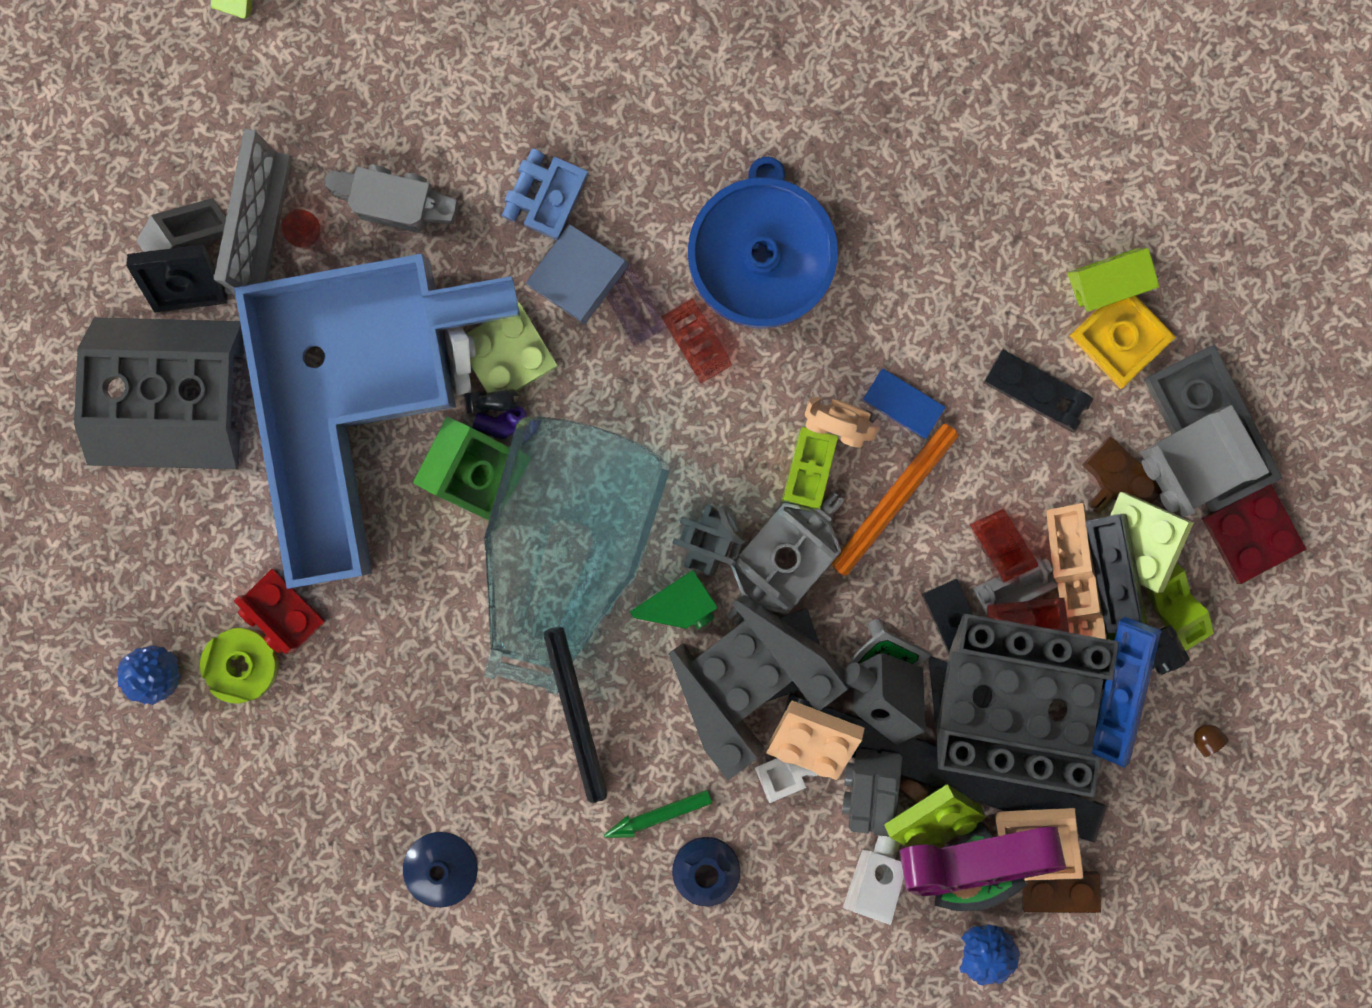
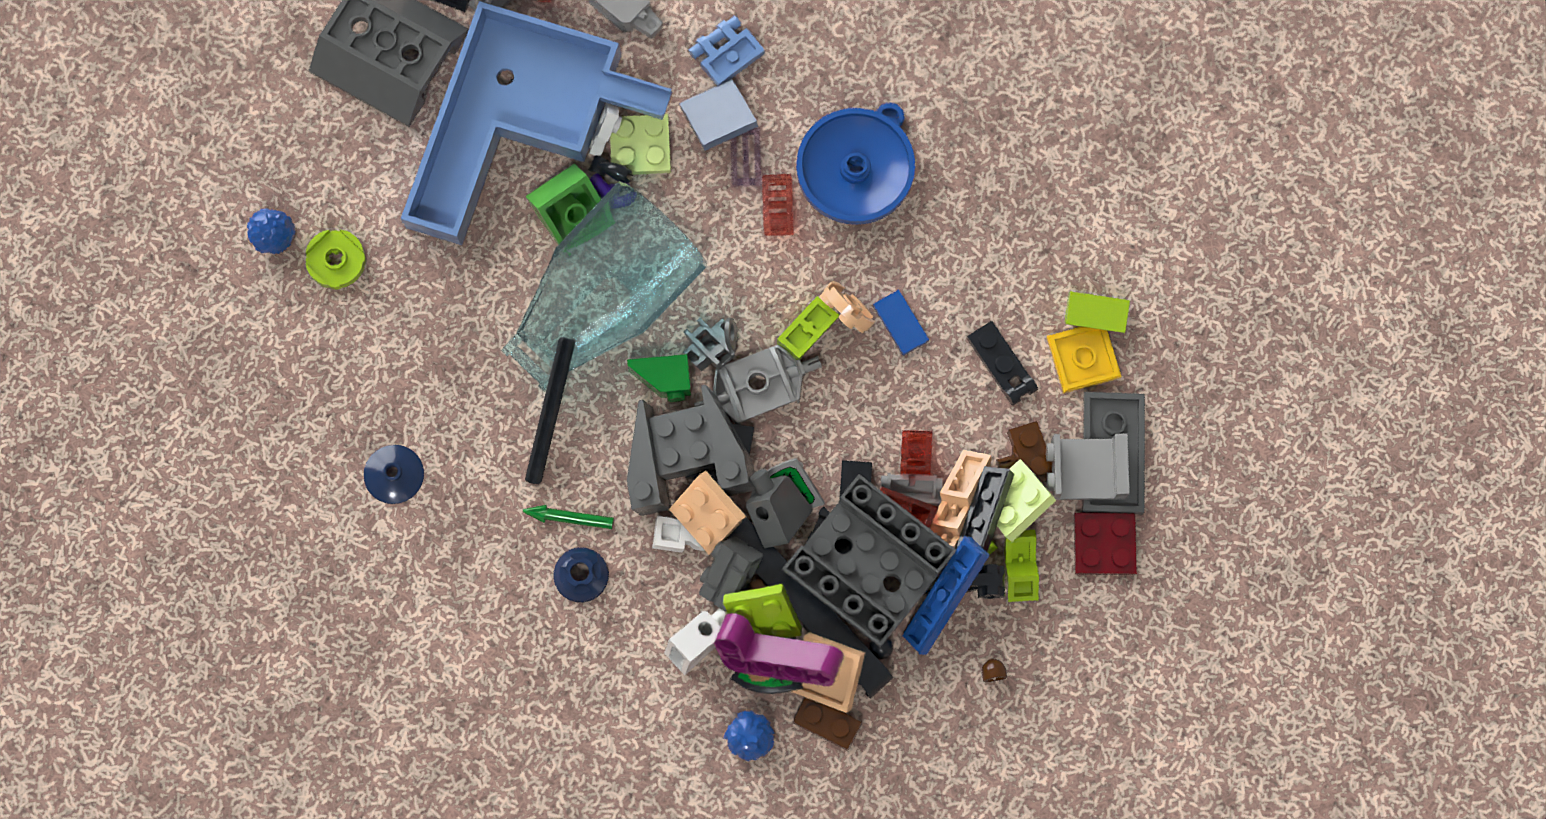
camera: 25 degrees right, 10 degrees down
(279, 613) = (384, 238): red bracket -> none
(894, 499) = (858, 385): orange axle -> none

